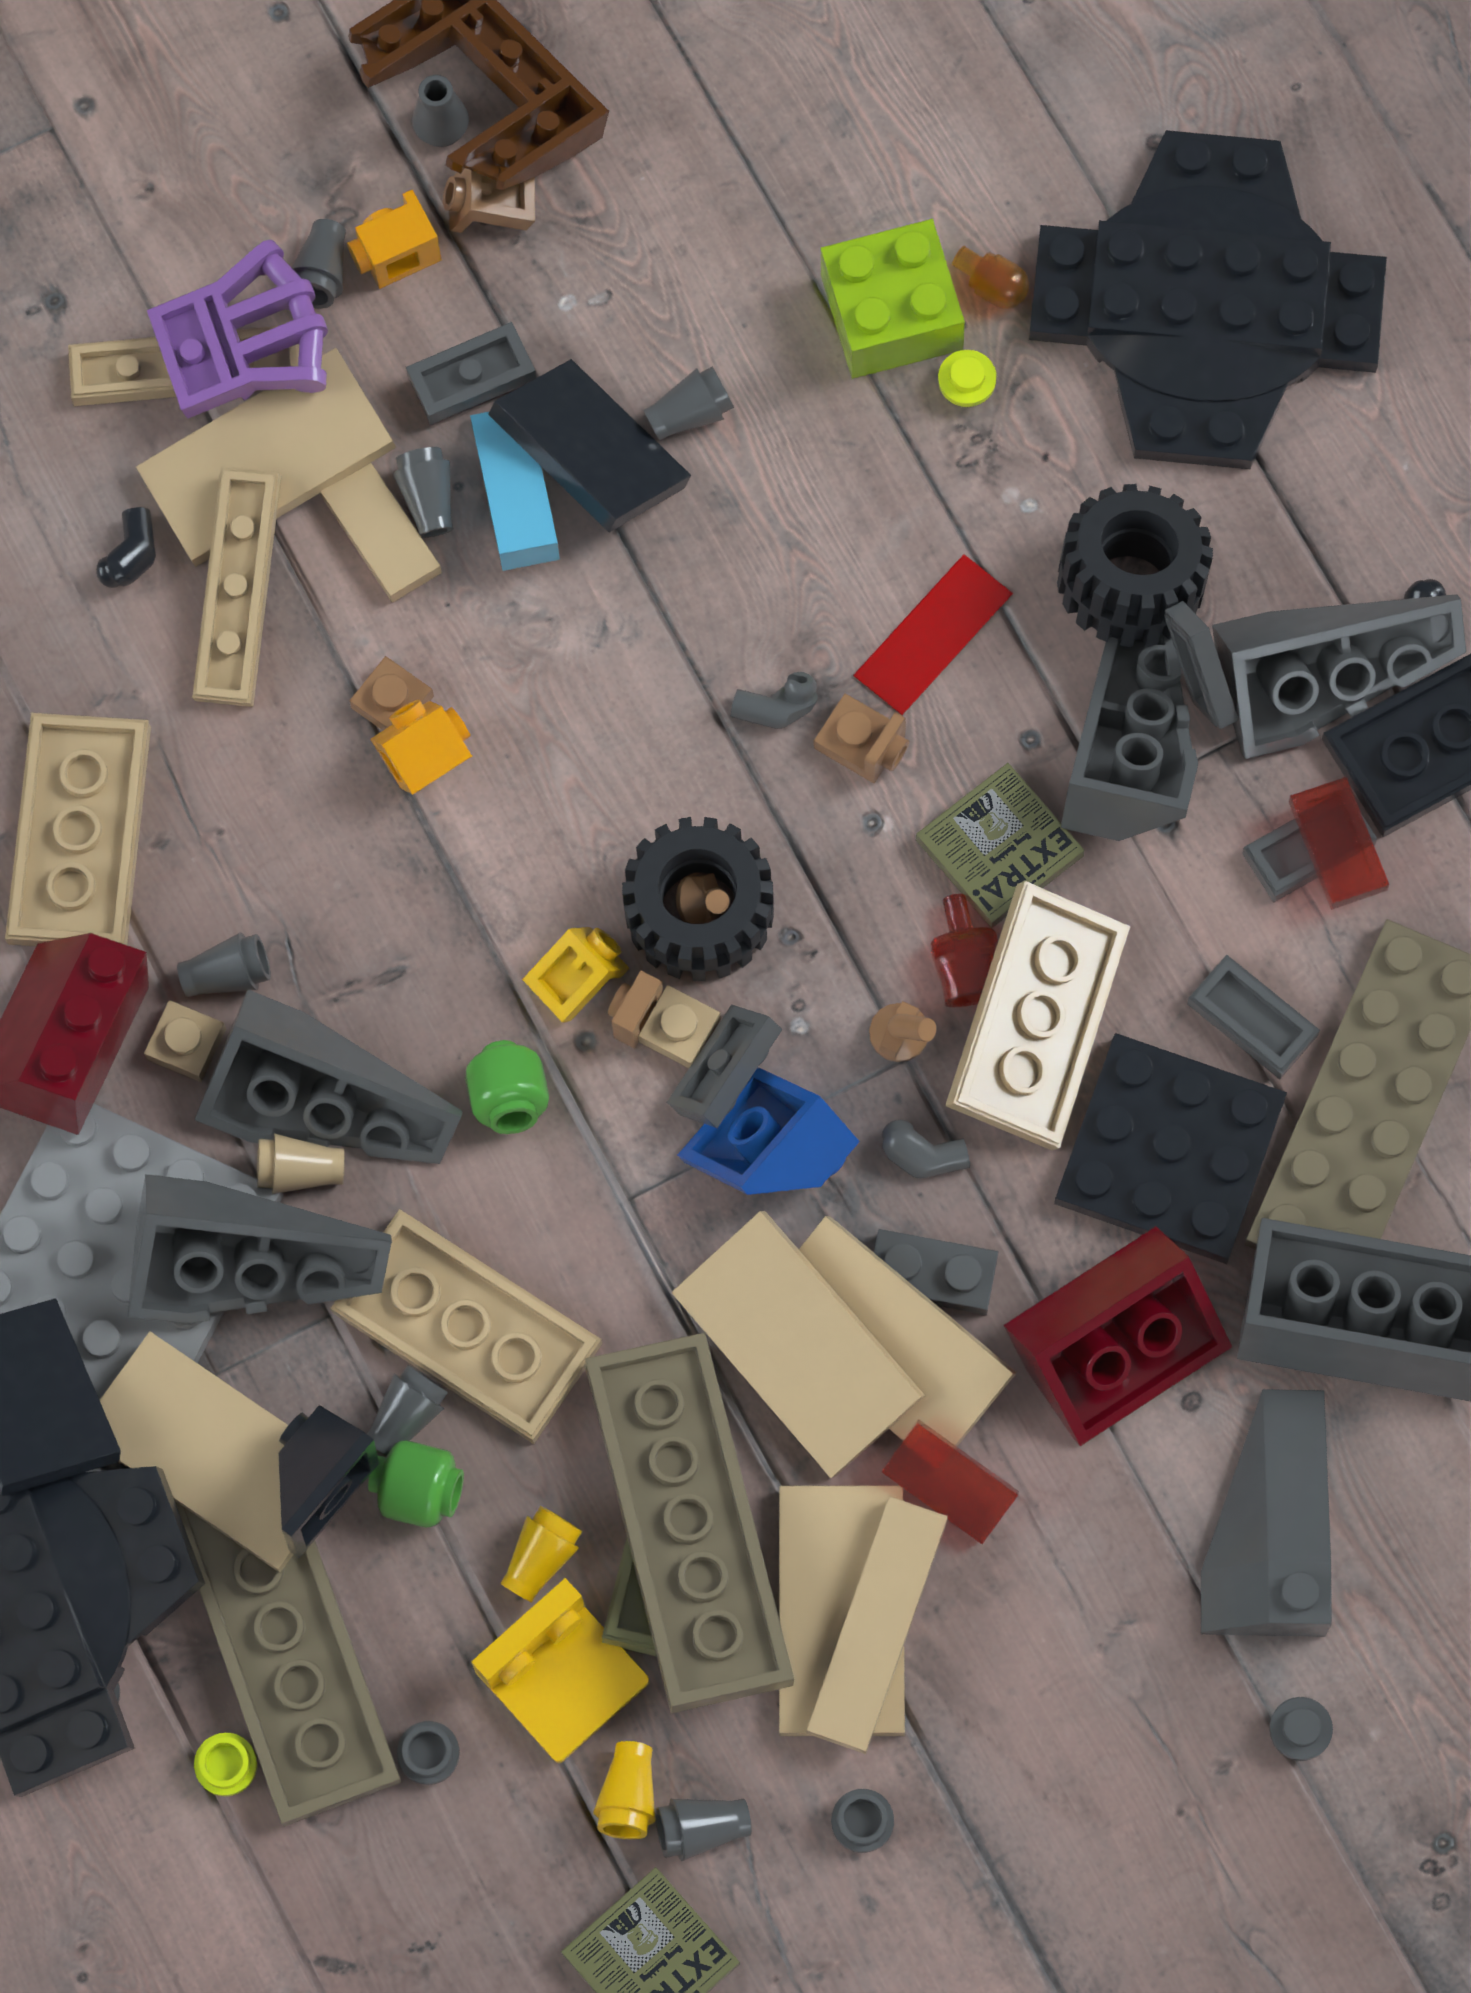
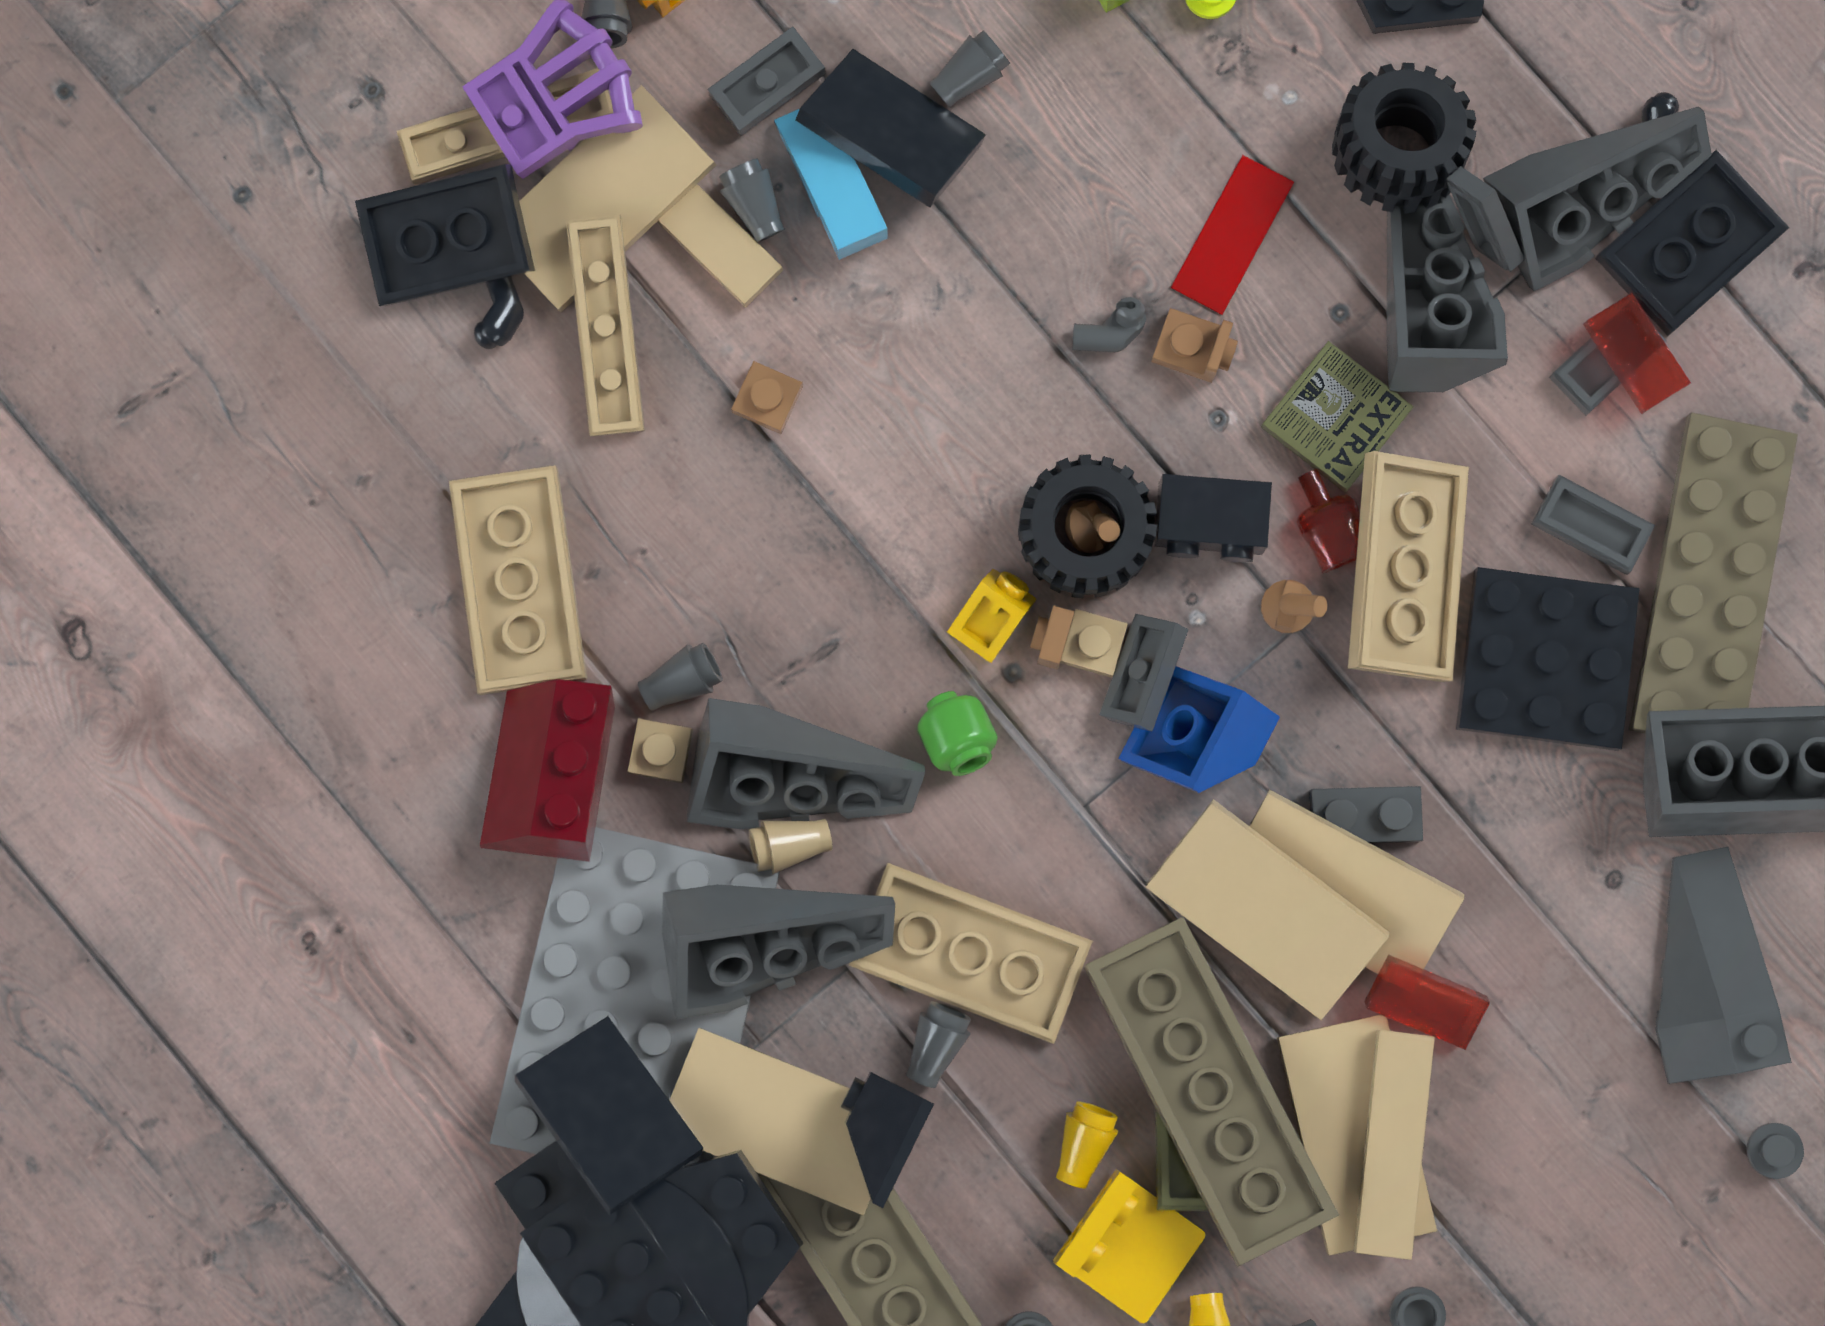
camera: 15 degrees left, 10 degrees up
(90, 458) = (445, 235): none -> black tile
(417, 1484) = (965, 1108): bright green head -> none
(422, 744) = (808, 438): light orange brick -> none
(836, 916) = (1212, 516): none -> black brick
(919, 1156) = (1331, 714): dark grey arm -> none
(1119, 1335) = (1542, 837): dark red slope -> none

